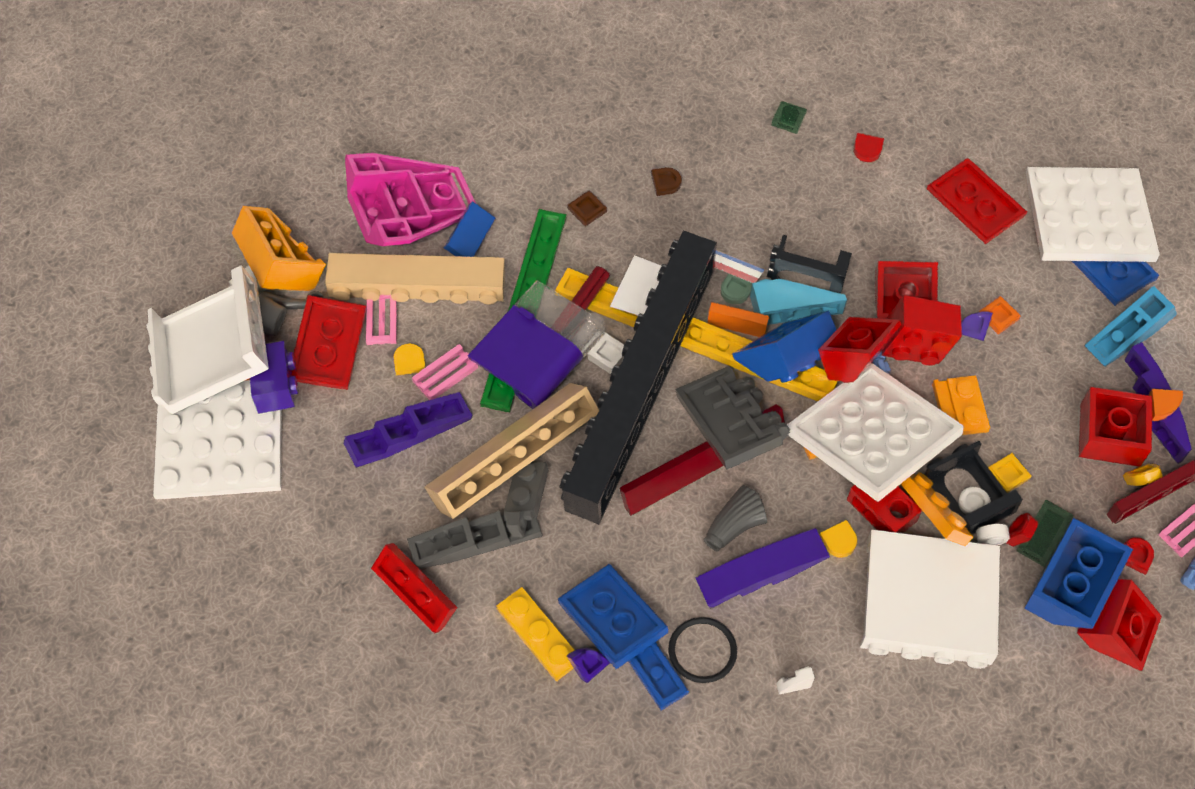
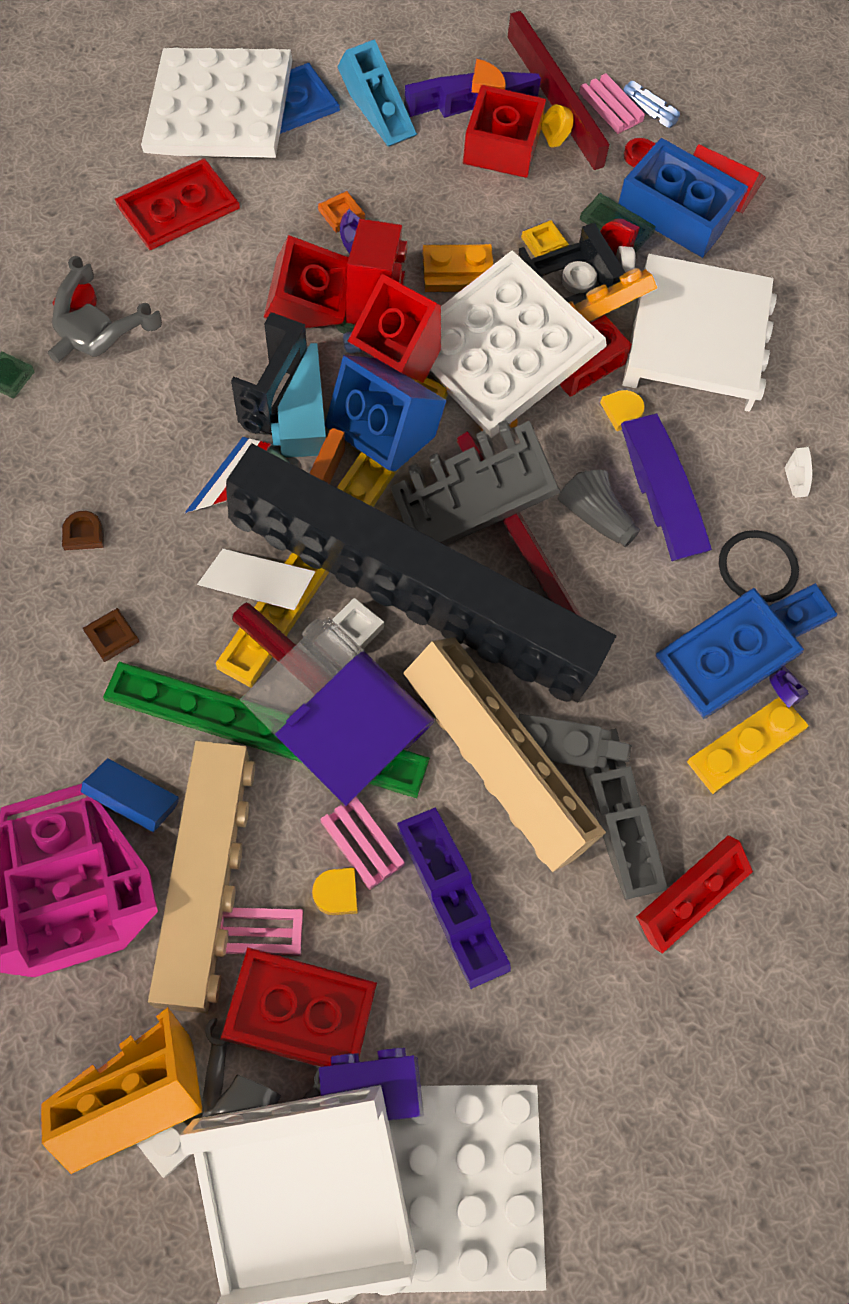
camera: 90 degrees left, 5 degrees up
(837, 156) = (89, 327): none -> dark grey piece

